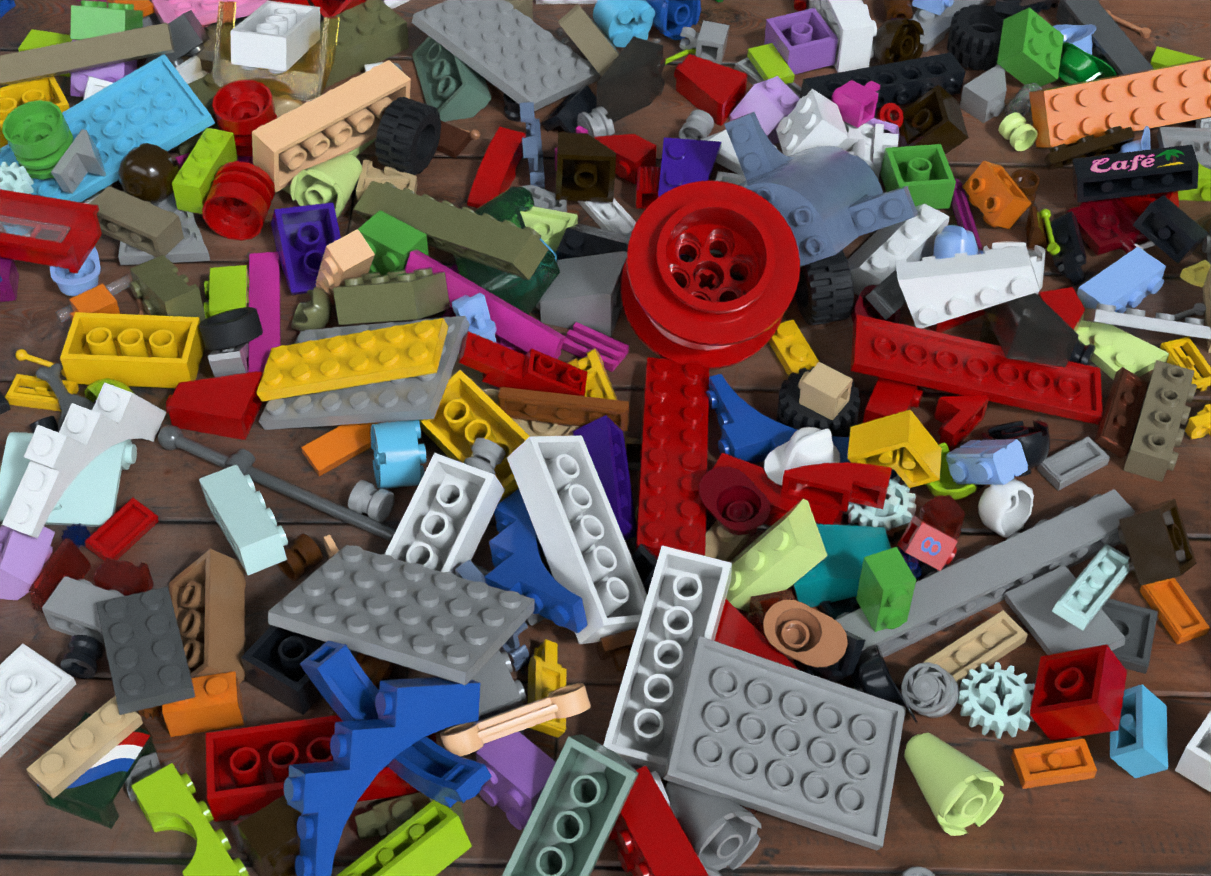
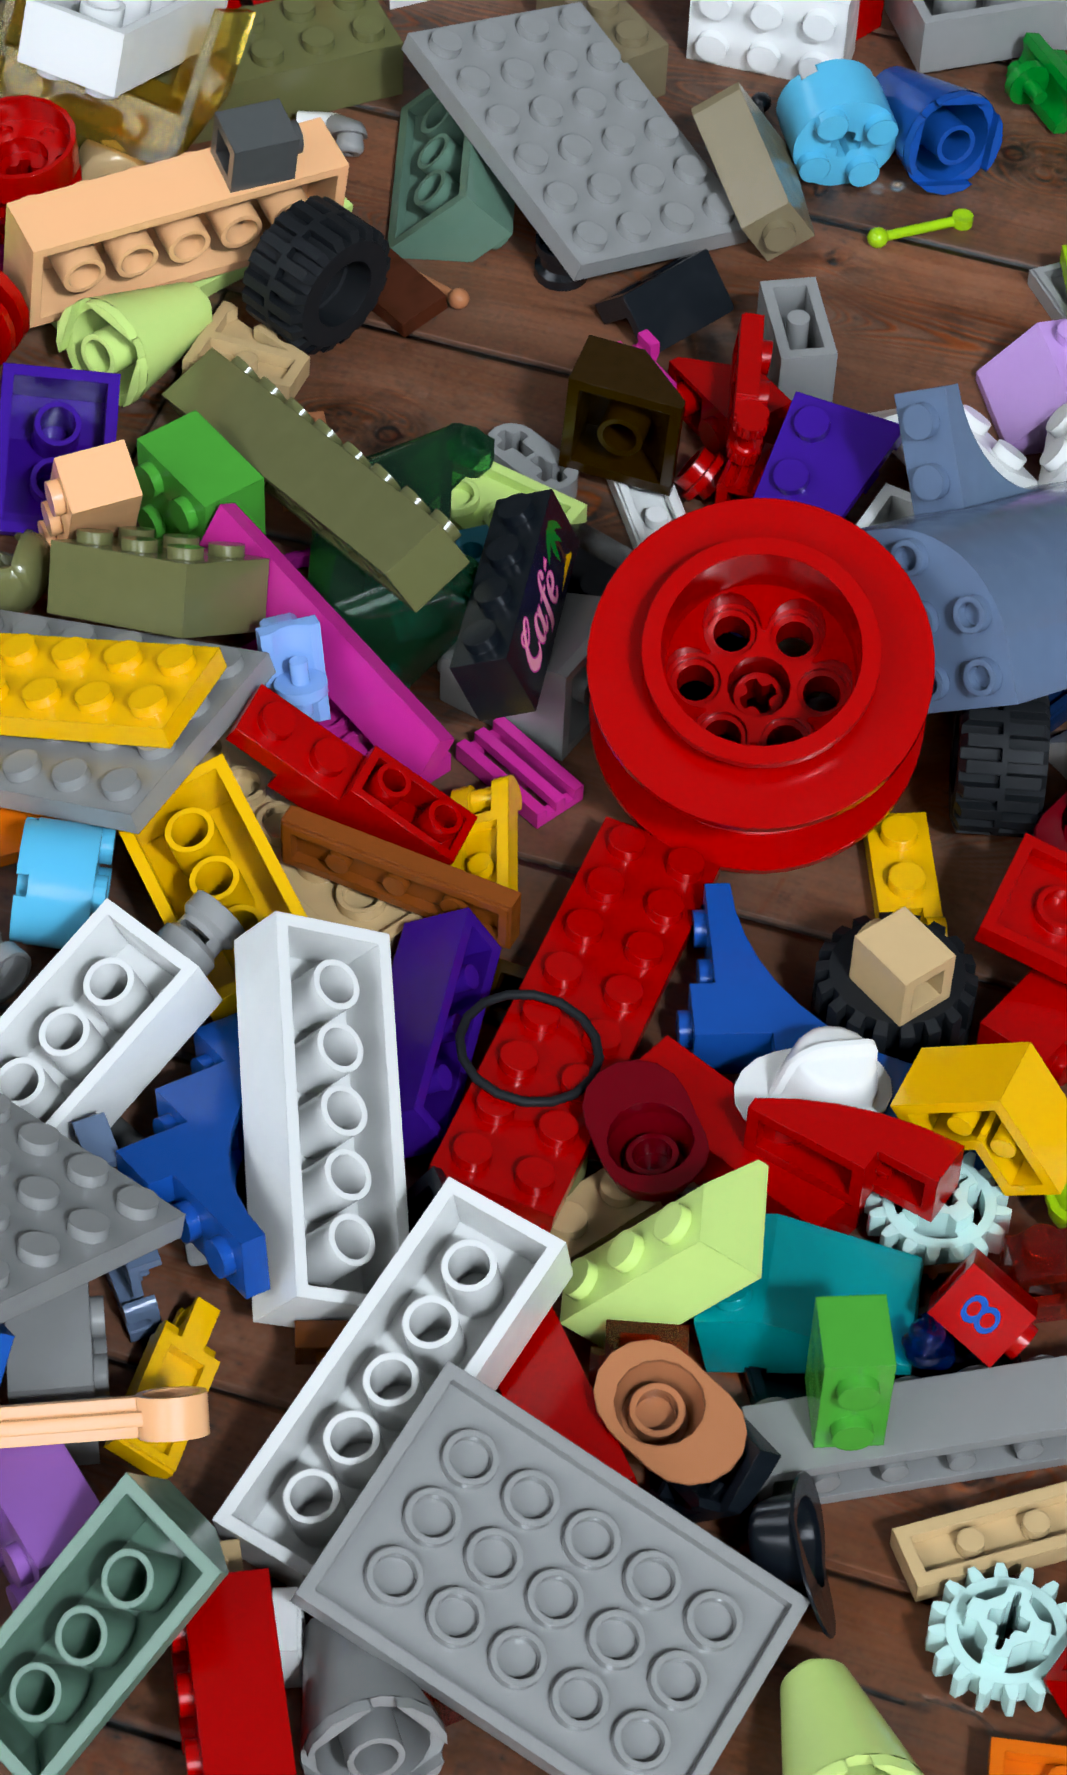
camera: 15 degrees right, 0 degrees up
(365, 78) = (256, 145): none -> dark grey brick
(497, 166) = (473, 371): red slope -> none
(532, 144) = (552, 354): sand blue piece -> none
(574, 266) = (515, 605): none -> black brick
(596, 122) = (692, 332): light grey wheel -> none
(624, 188) = (700, 474): none -> red plate
(632, 79) = (813, 233): clear smoke slope -> none
(636, 144) = (748, 393): none -> red hinge
(645, 115) = (801, 336): none -> light grey brick
(657, 500) = (511, 1097): none -> black piece
(697, 125) = (896, 373): light grey wheel -> none
(709, 43) = (993, 215): light grey brick -> none
(710, 86) = (958, 306): red slope -> none
(930, 690) = (878, 1585): light grey wheel -> none

